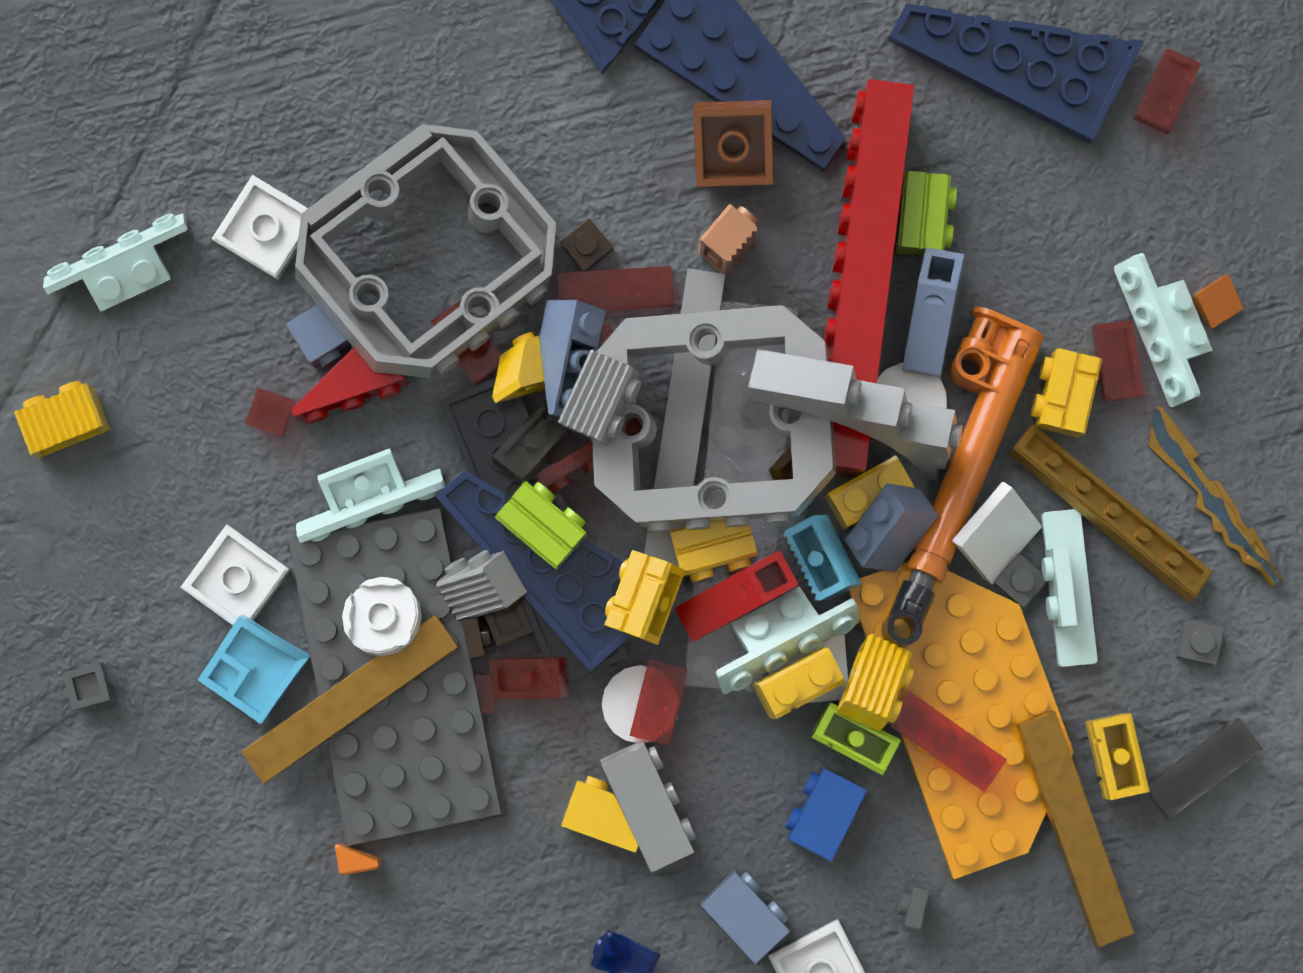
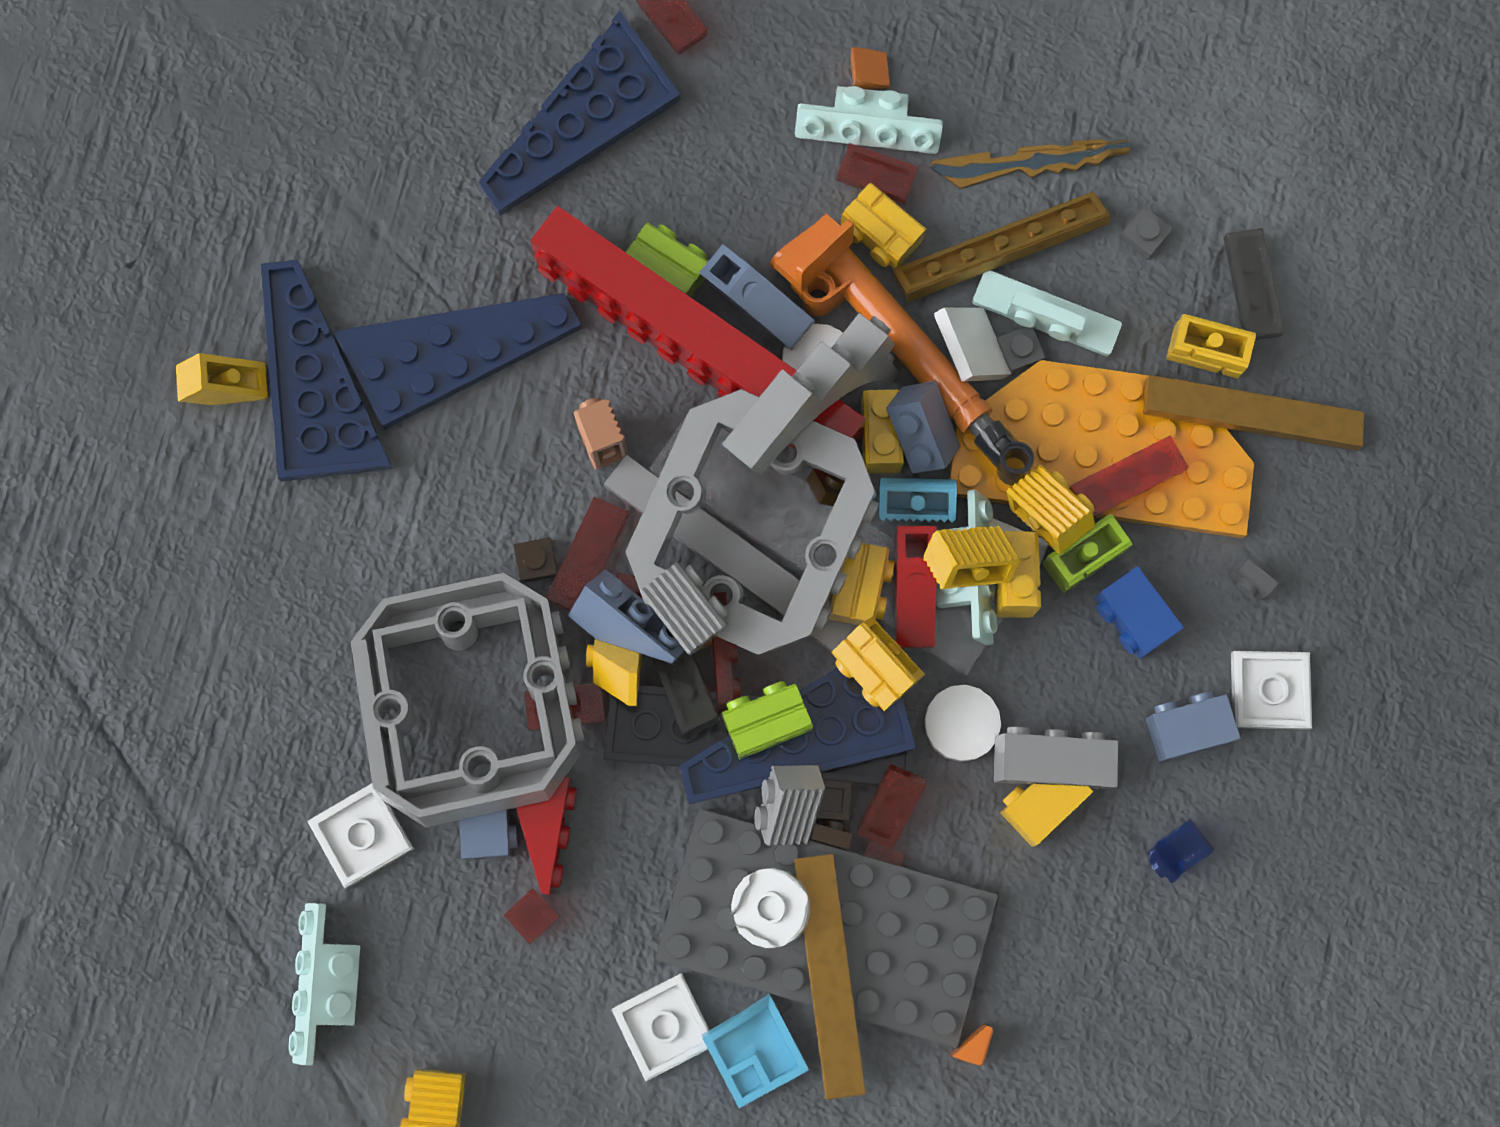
camera: 65 degrees left, 5 degrees down
(365, 490) = (648, 867): light aqua bracket -> none
(659, 702) = (971, 704): clear red plate -> none
(733, 143) = (519, 384): dark orange brick -> none
(784, 631) = (971, 557): none -> yellow brick
(1003, 341) = (814, 251): none -> orange panel

